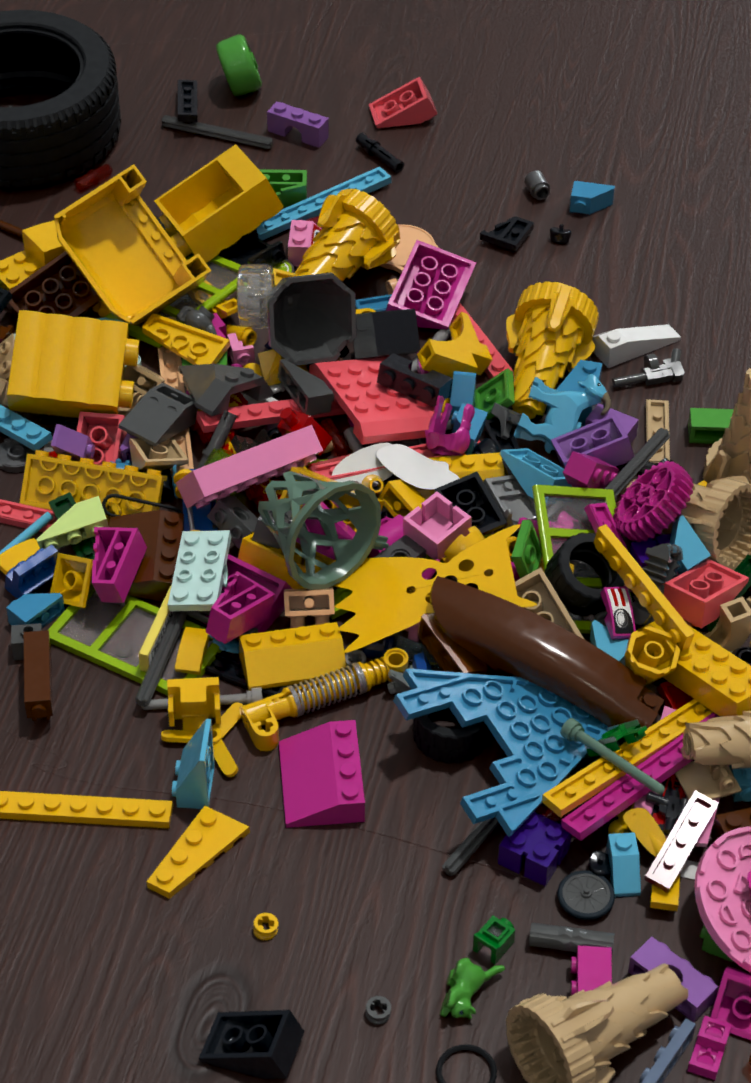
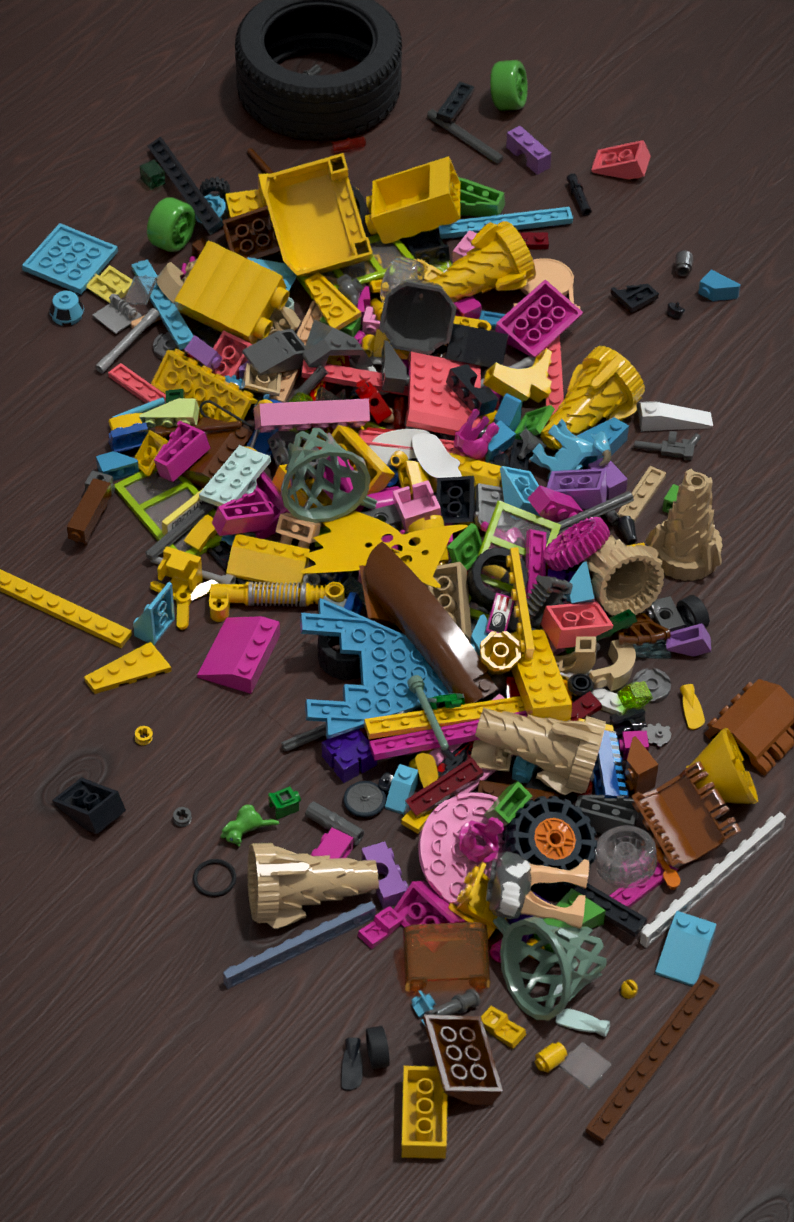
camera: 25 degrees right, 5 degrees up
(75, 550) = (165, 432): none -> reddish brown piece

